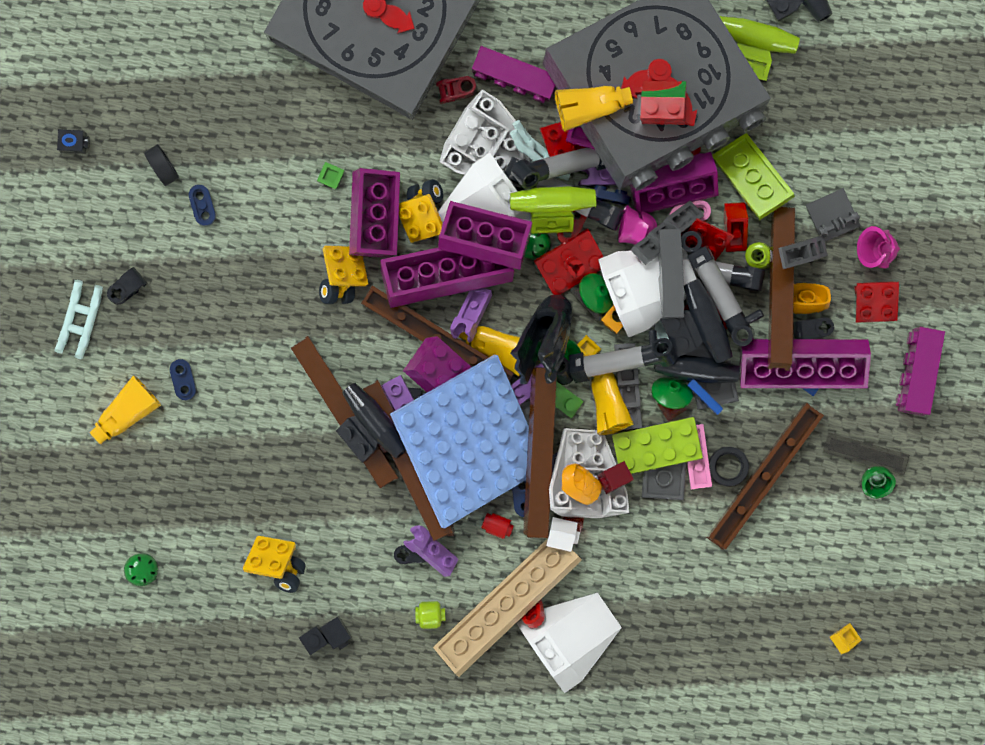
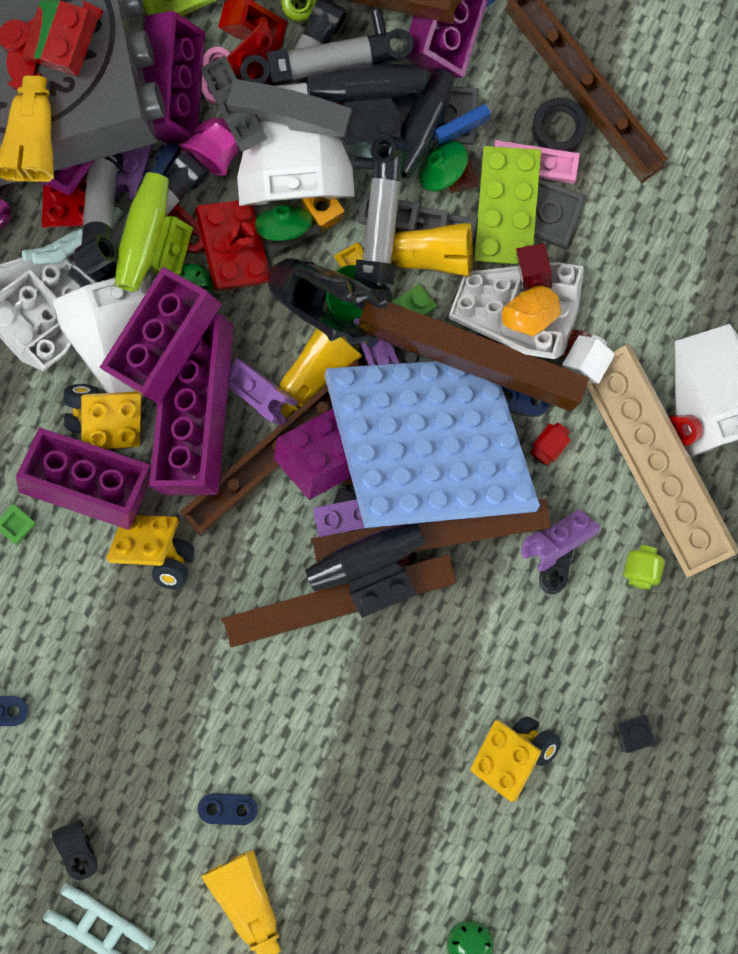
camera: 80 degrees left, 5 degrees down
(336, 633) = (633, 700): black brick -> none

